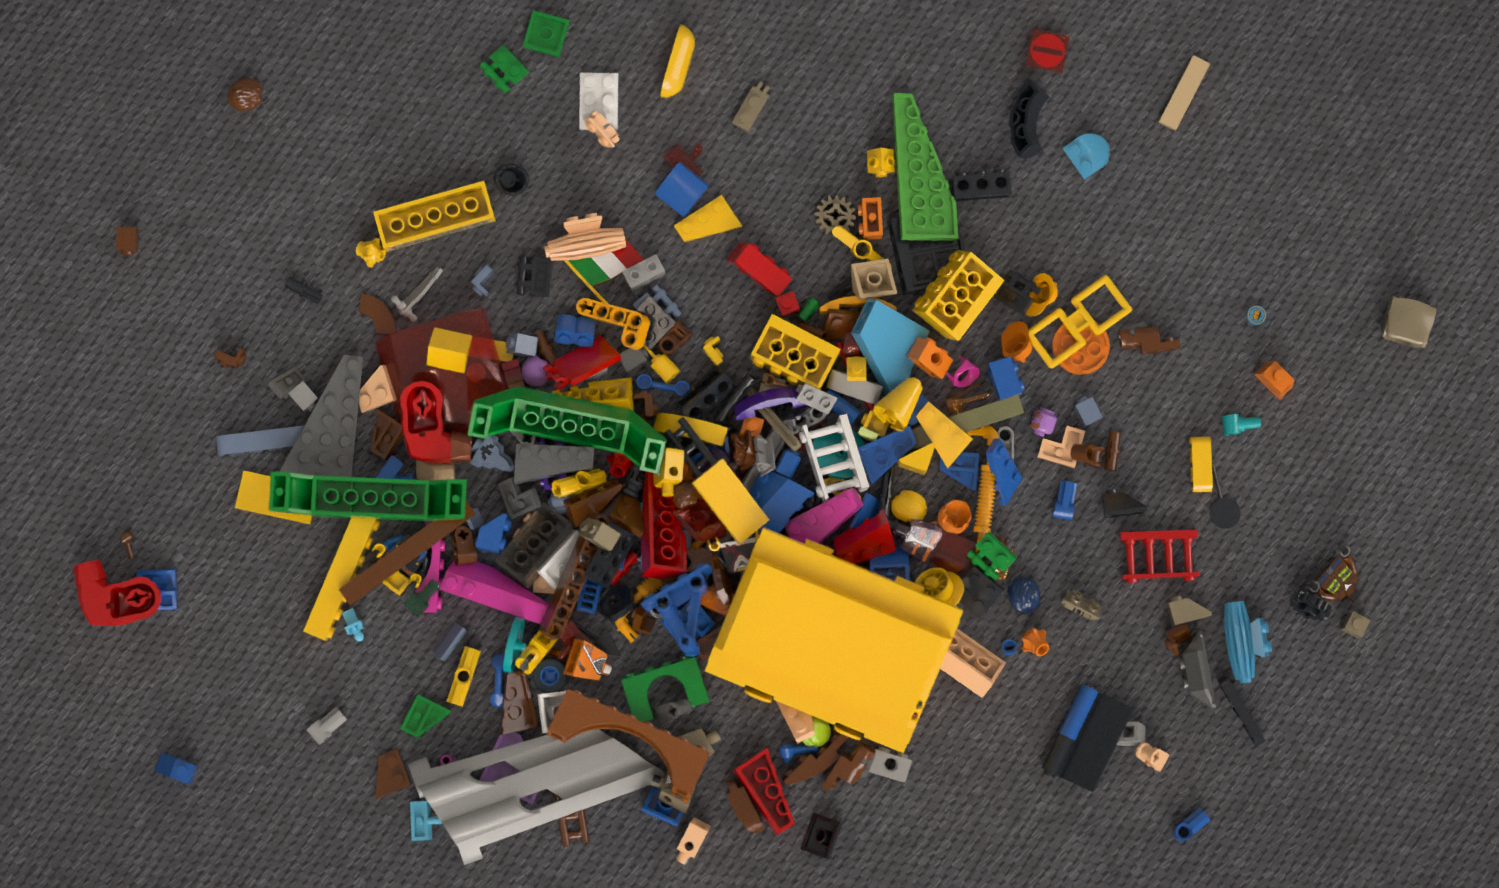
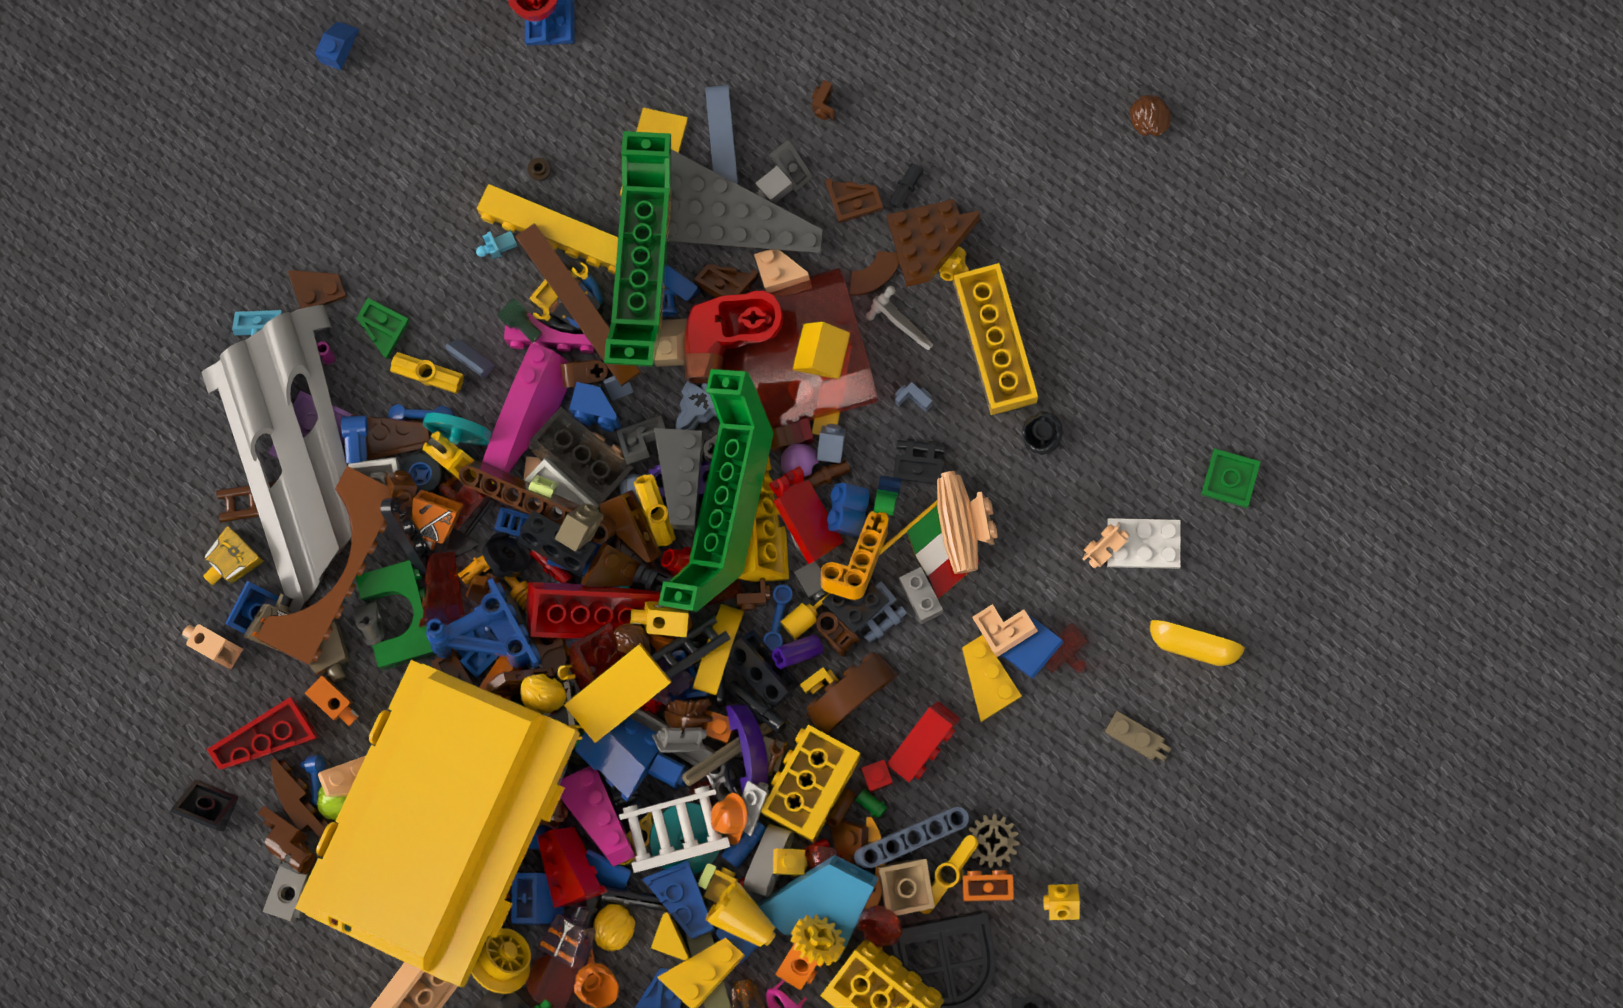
camera: 105 degrees right, 5 degrees down
(292, 596) = (541, 175): none -> dark brown plate
(315, 333) = (853, 199): none -> reddish brown wing
(323, 728) = (375, 211): light grey piece -> none
(350, 270) = (928, 237): none -> reddish brown wing
(508, 64) = (1189, 432): green plate -> none
(518, 728) = (355, 432): none -> blue piece
(561, 570) = (543, 486): none -> yellowish green tile
(563, 685) = (401, 486): none -> reddish brown bracket
(564, 299) = (887, 495): none -> leg
(602, 680) = (396, 514): none -> black beam
(620, 830) = (230, 558): none -> yellow torso
(647, 652) = (443, 591): none -> clear red wing
(674, 210) = (1004, 635): none -> light nougat plate
(690, 367) = (797, 651): none -> dark purple axle
(724, 324) = (850, 692): none -> reddish brown brick
(731, 561) = (542, 693): none -> yellow hair
(731, 742) = (323, 693): none -> orange torso
(744, 808) = (245, 709): reddish brown piece -> none
(823, 413) = (730, 817): none -> orange piece
(835, 283) = (900, 838): none -> sand blue beam
(904, 296) = (880, 926): none -> clear red hair
(917, 342) = (817, 940): none -> yellow gear
(924, 195) = (1017, 958): bright green wing -> none

